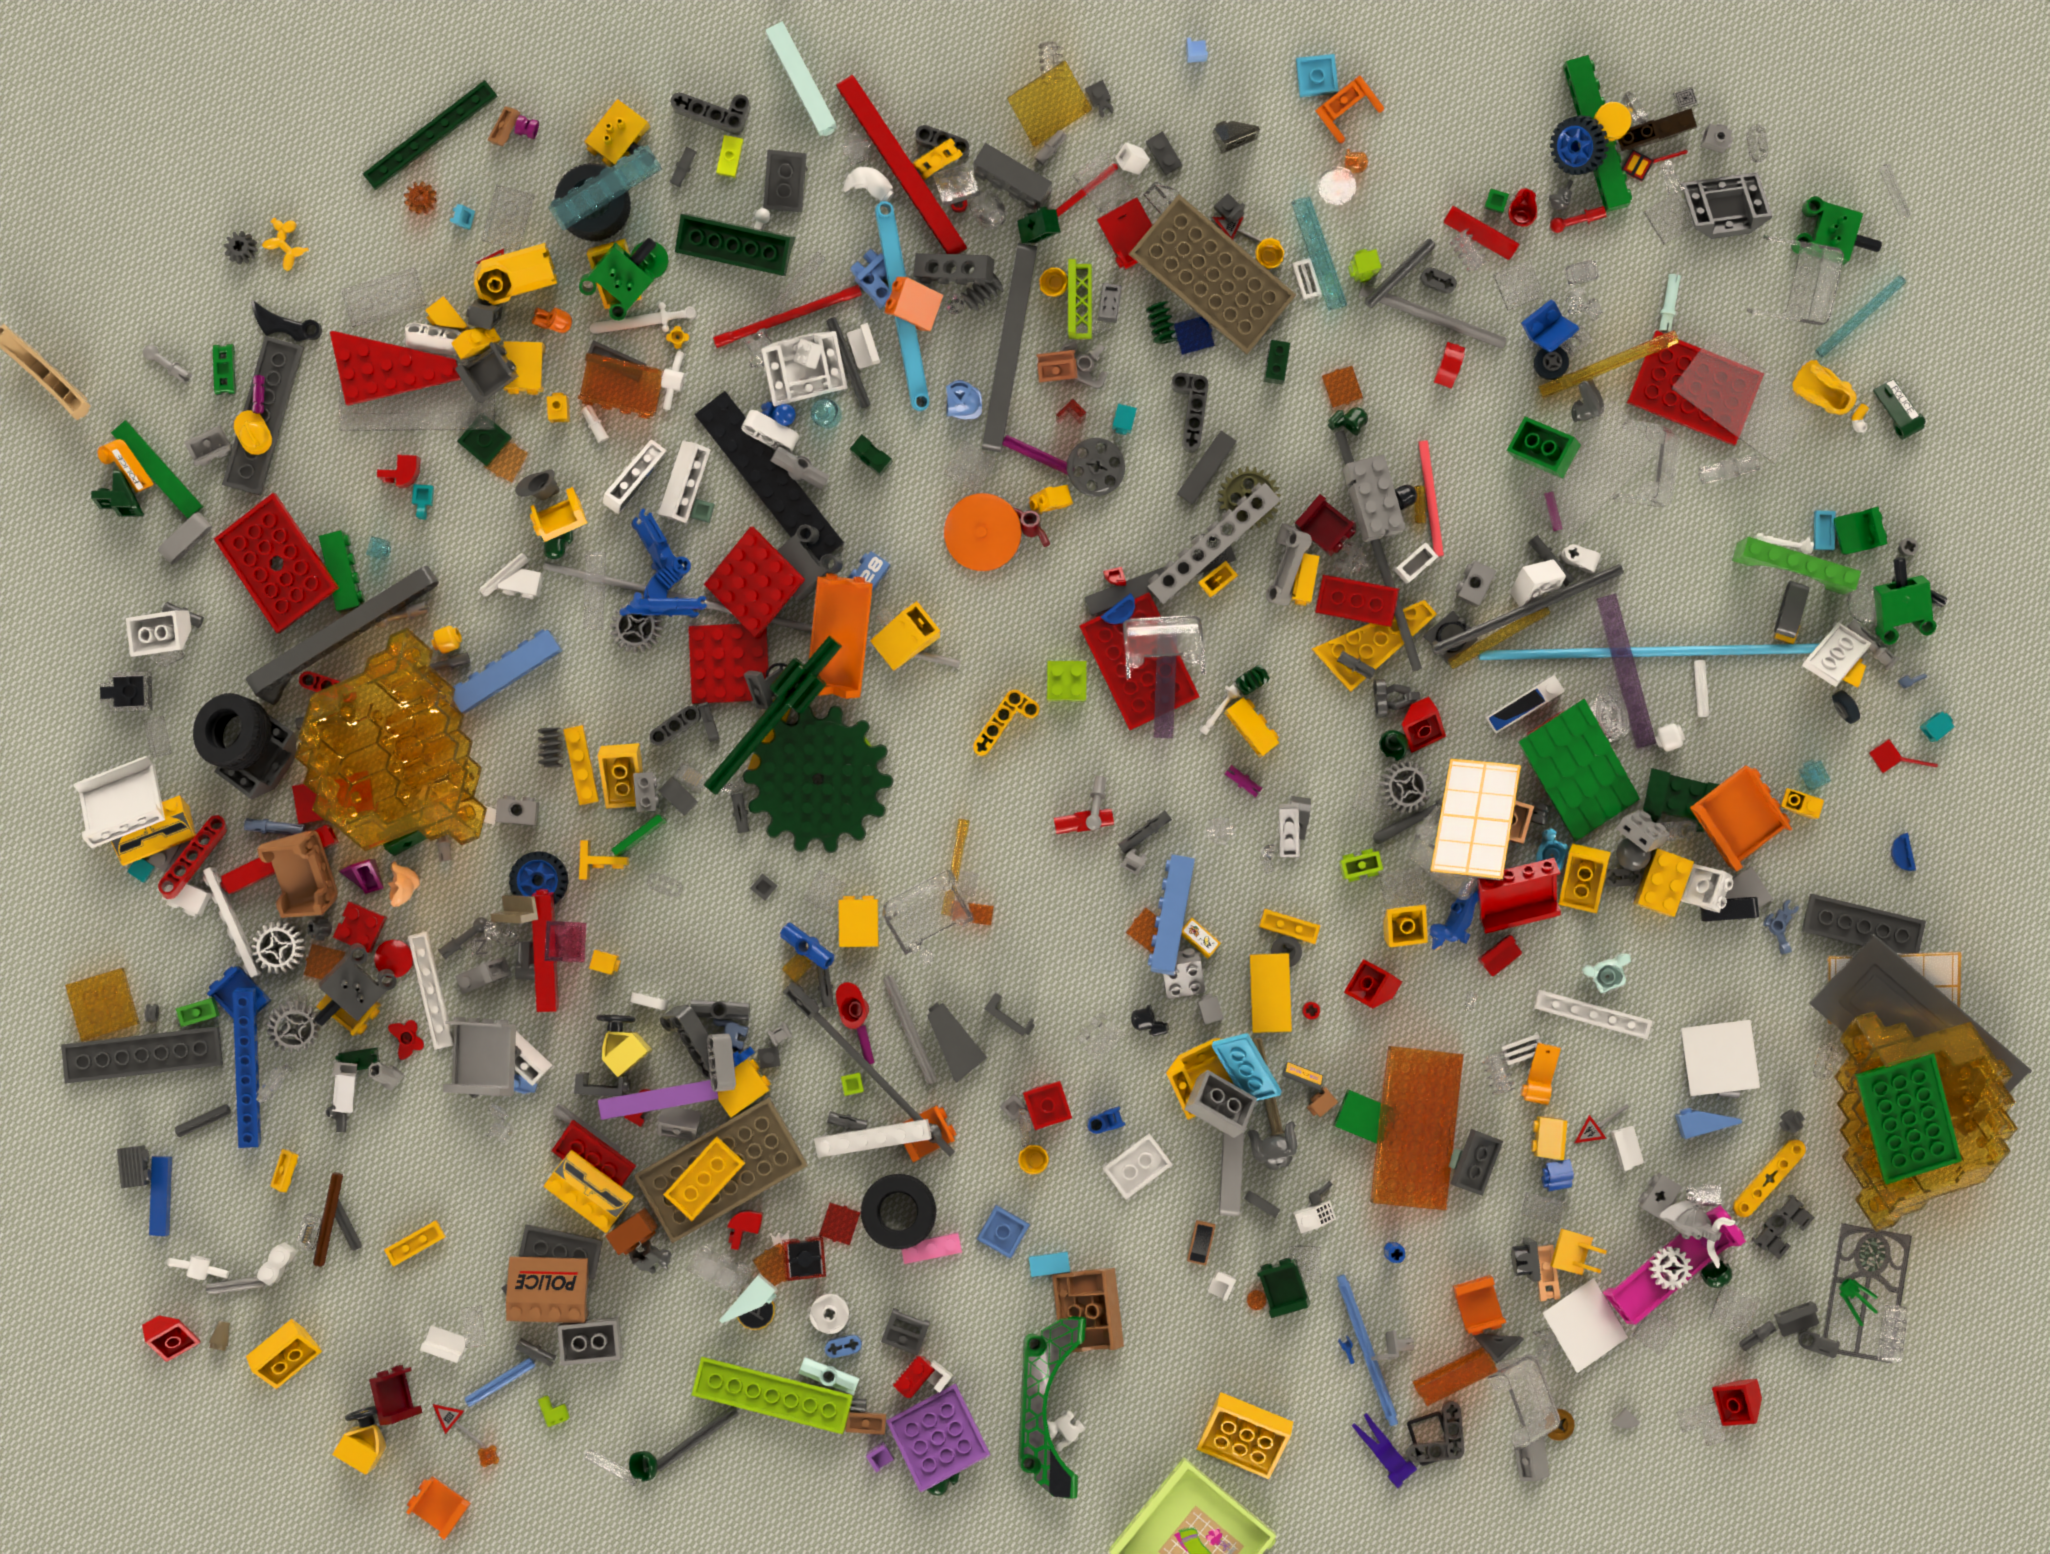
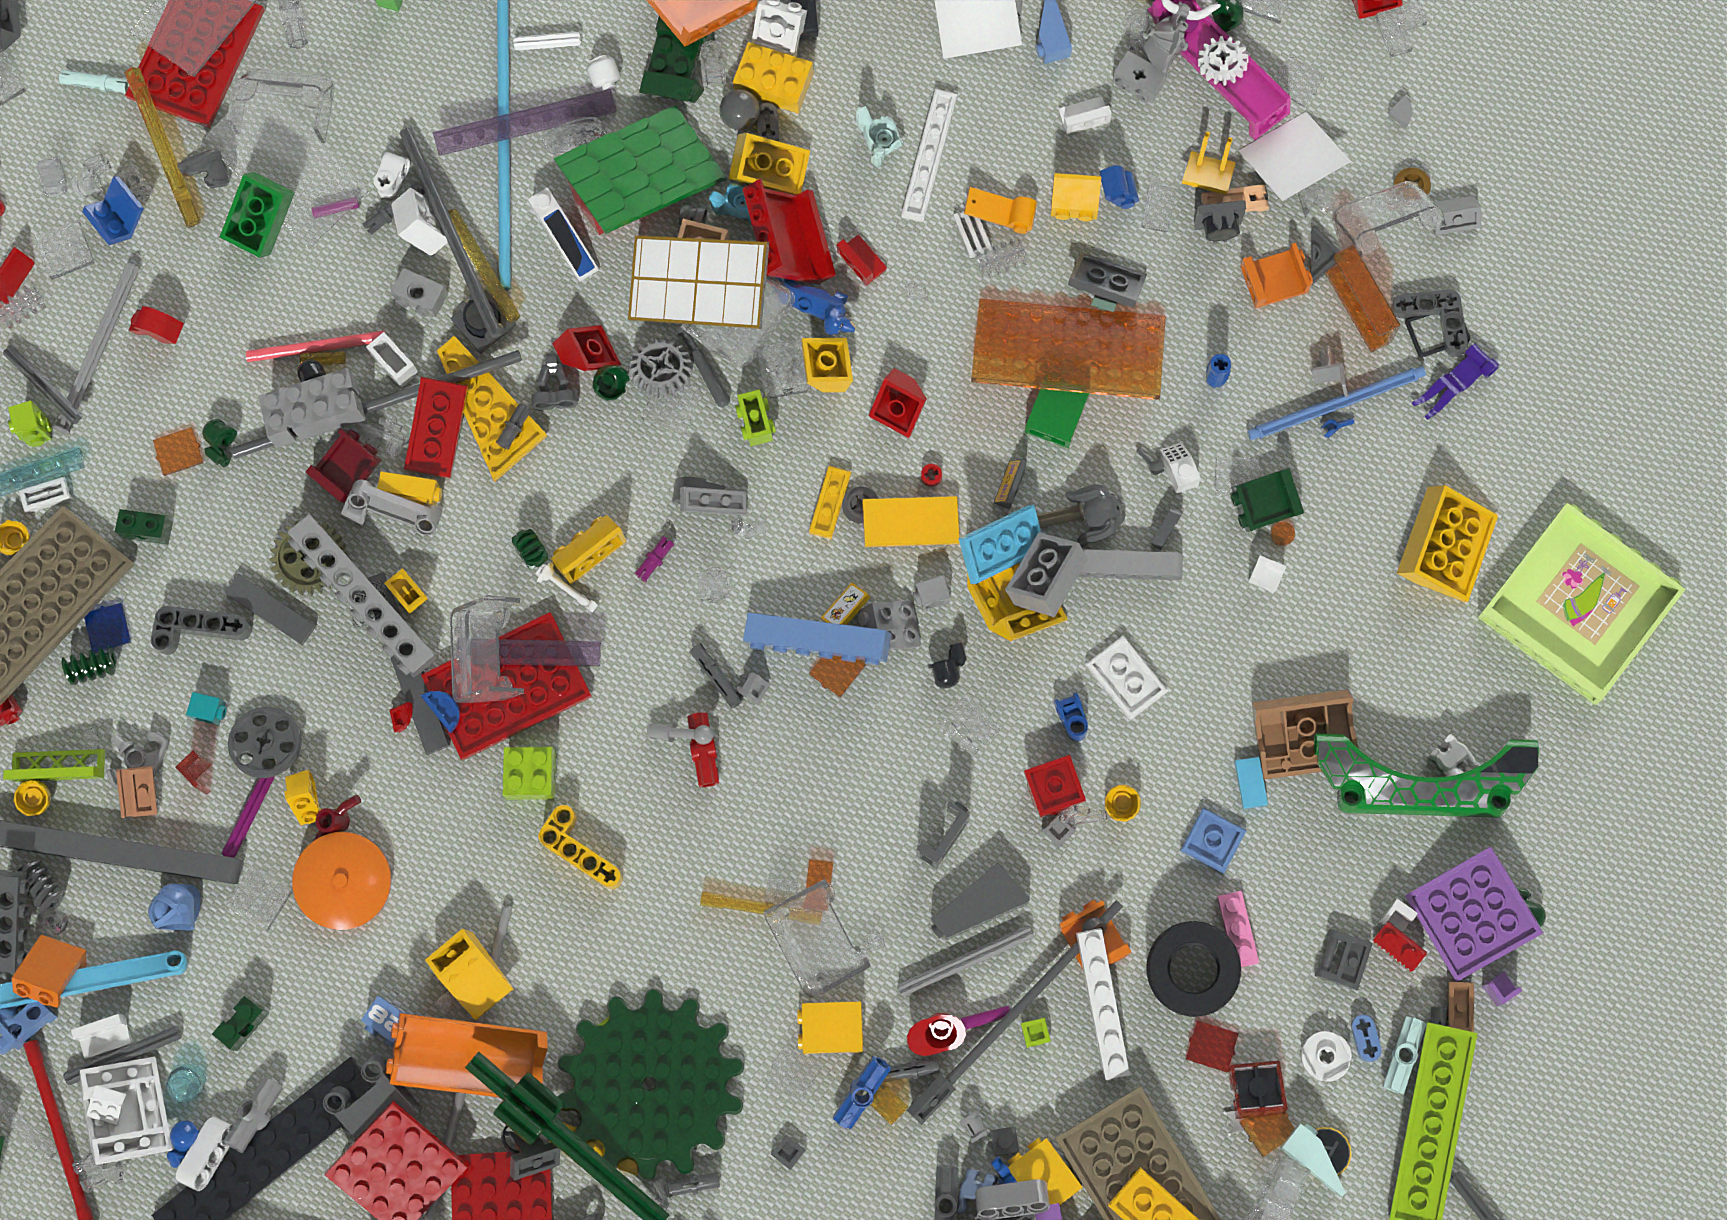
camera: 80 degrees left, 10 degrees down
(744, 1221) = (1213, 1168): red brick -> none
(846, 1121) = (1083, 1039): dark grey pin -> none
(1109, 303) = (62, 729): dark grey plate -> none
(1201, 1242) = (1217, 599): slope -> none
(1321, 1102) = (1042, 459): medium nougat brick -> none
(1441, 276) = (55, 342): dark grey beam -> none
(1557, 357) = (159, 203): black wheel -> none
(1591, 1130) = (1066, 154): piece -> none
(1642, 831) = (713, 97): light grey piece -> none

